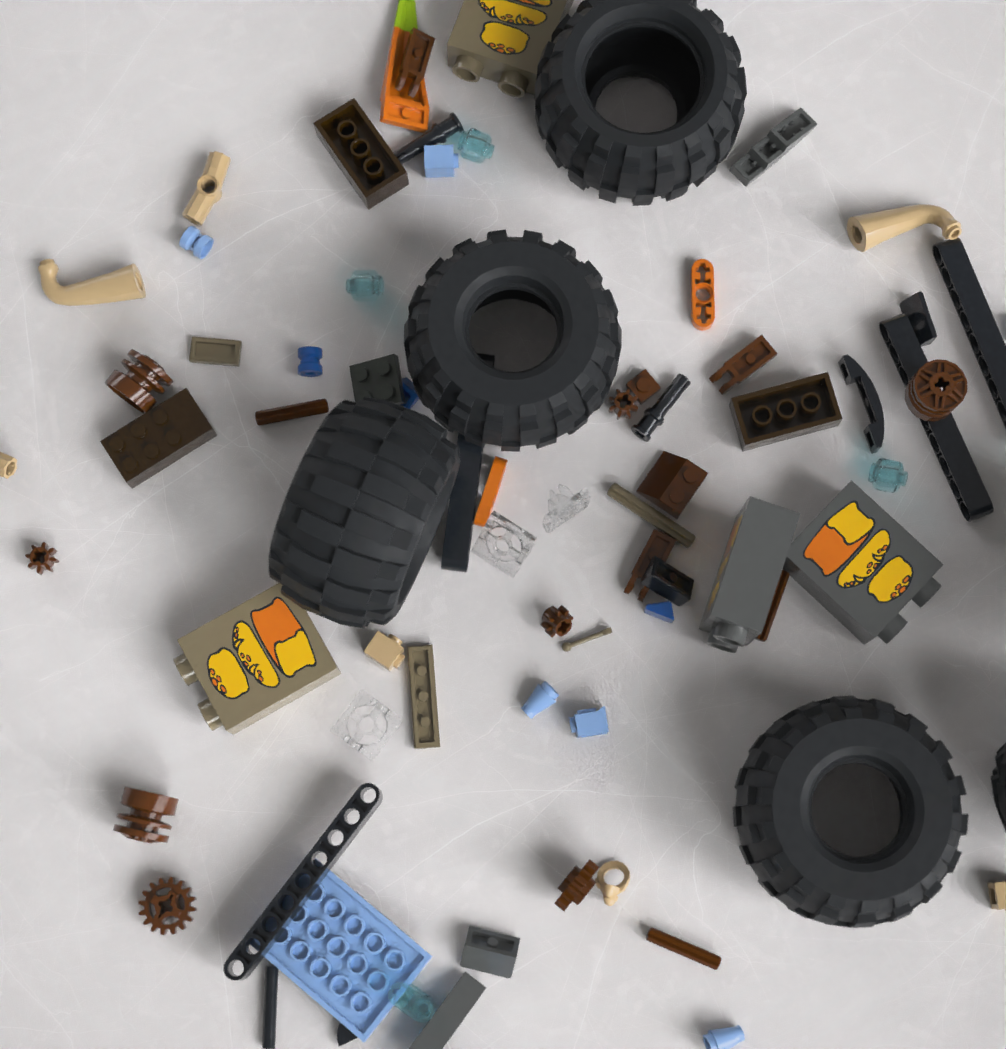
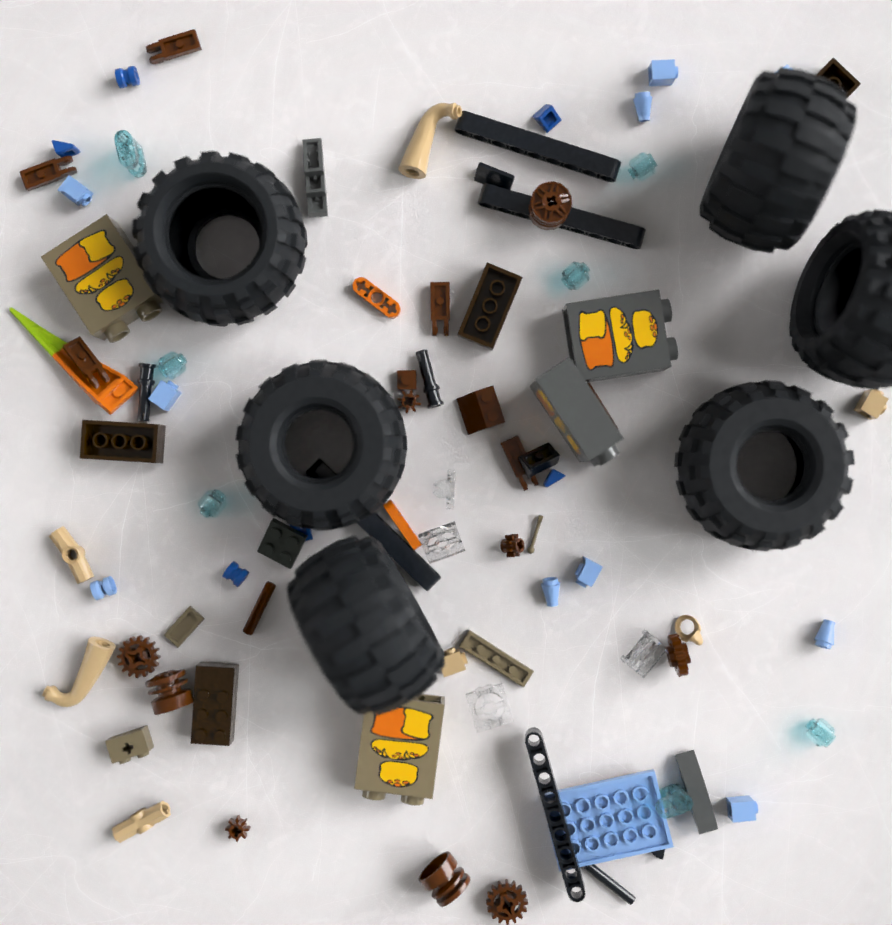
camera: 50 degrees left, 10 degrees up
(41, 375) = (119, 749): none -> dark tan brick
(160, 327) = (146, 658): none -> reddish brown gear
(490, 952) = (674, 731): dark grey panel -> none
(531, 865) = (643, 666): none -> clear piece
(651, 515) = (490, 437): dark tan axle -> none
(683, 948) = (757, 617): reddish brown axle -> none
(855, 373) = (496, 244): black slope -> none

